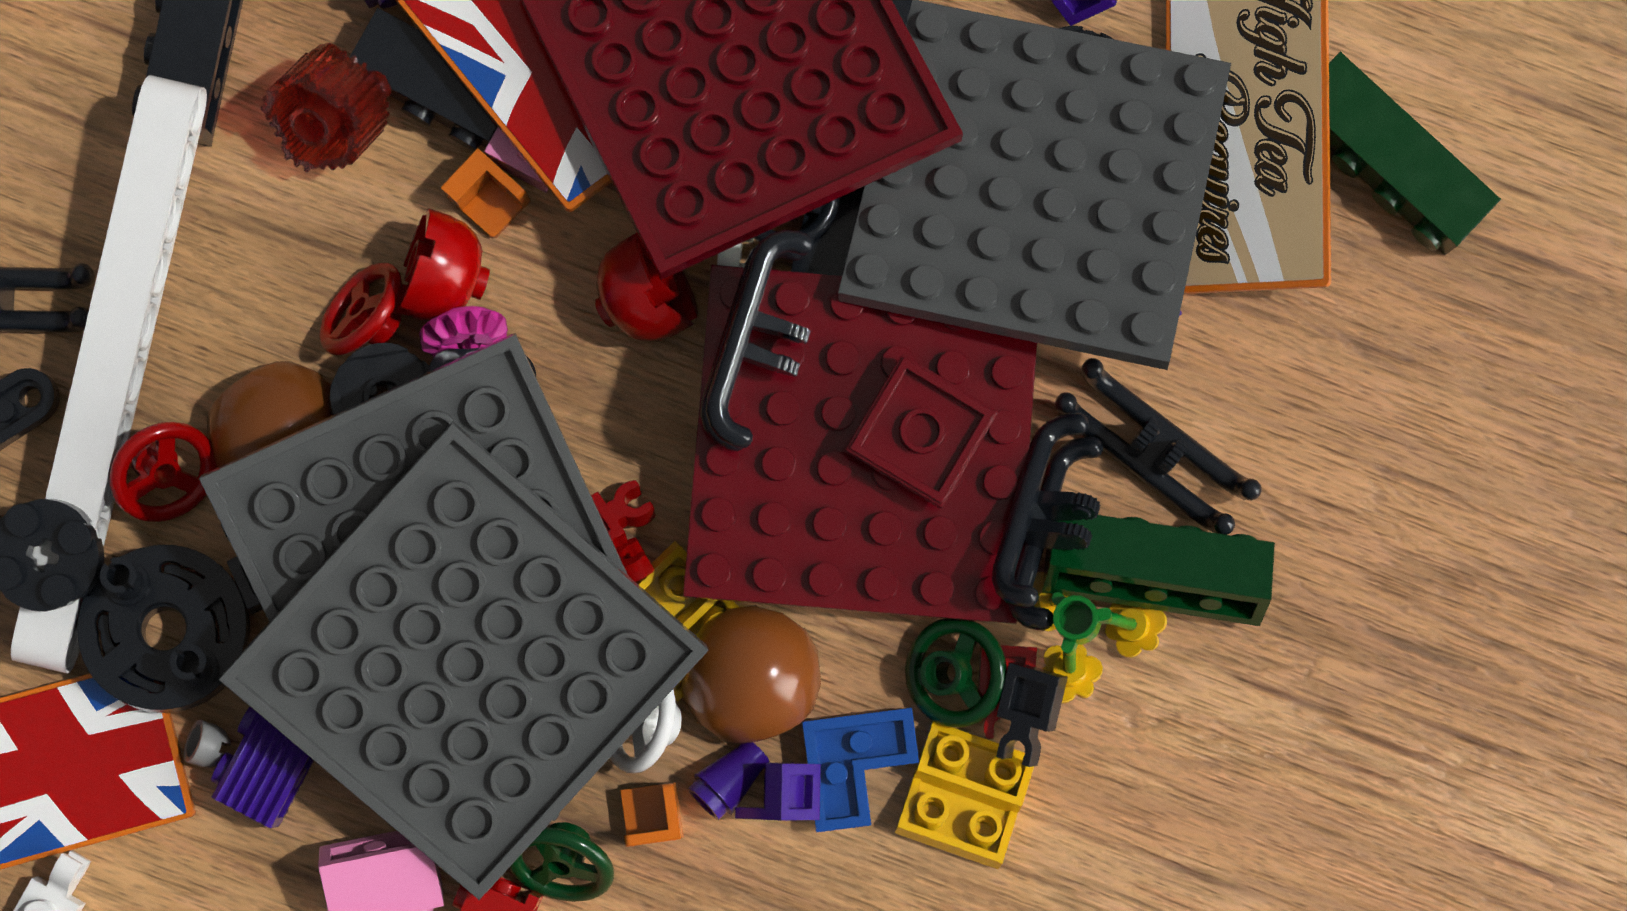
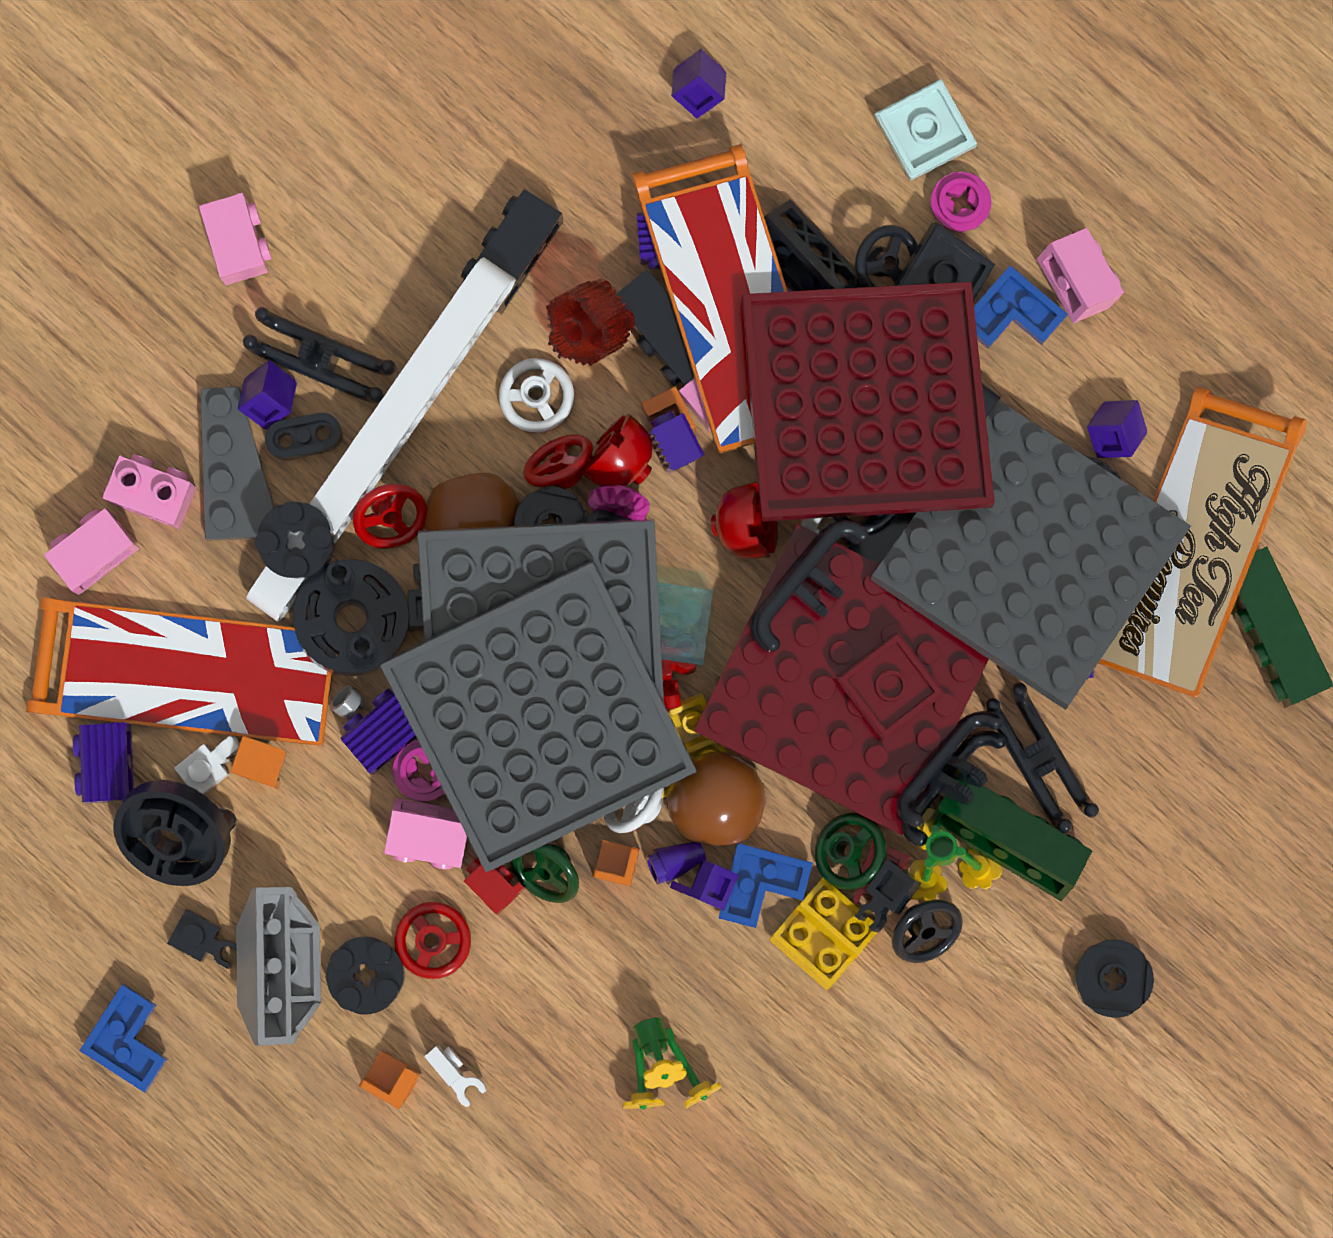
camera: 30 degrees right, 0 degrees up
(114, 873) = (258, 762): none -> orange panel
(281, 225) = (509, 395): none -> white piece
(317, 800) = (403, 769): none -> dark pink gear
(505, 221) = (675, 441): none -> dark purple brick
(612, 457) = (683, 622): none -> clear light blue plate
(1093, 734) = (923, 928): none -> black piece
(1395, 717) = (1128, 995): none -> black plate

